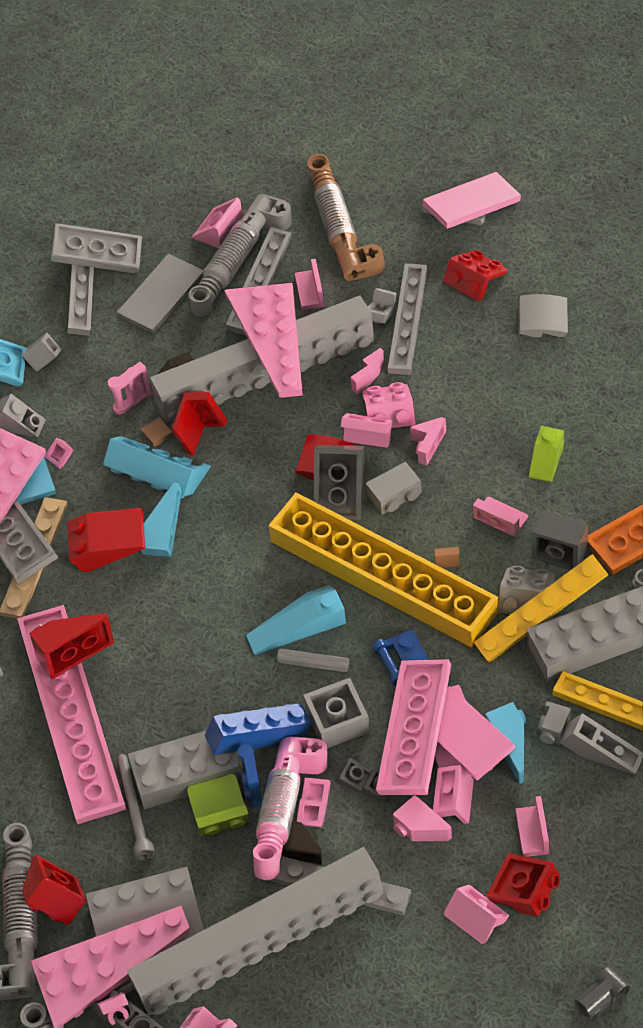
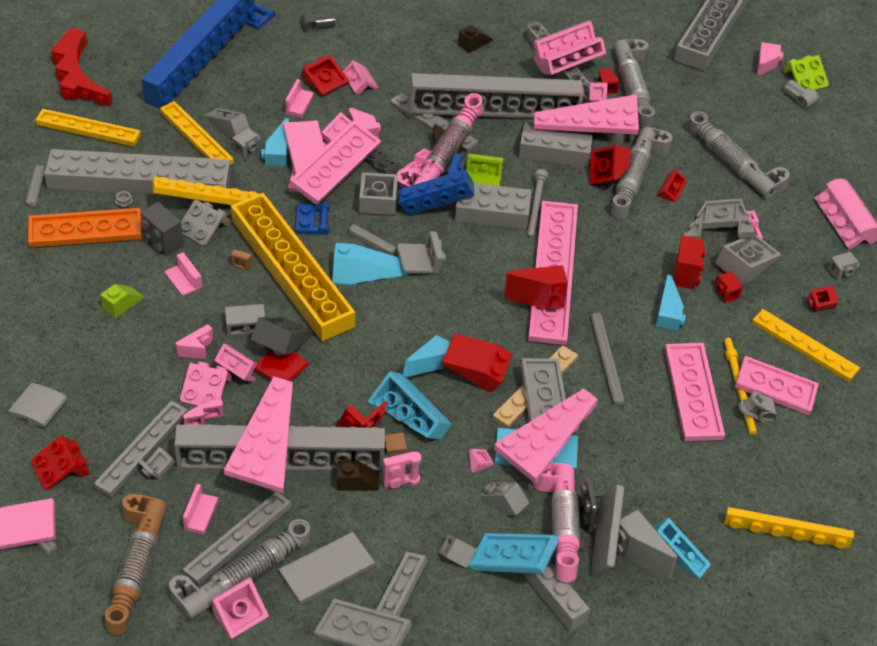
camera: 165 degrees left, 5 degrees down
(239, 653) = (422, 258): none -> light grey bracket

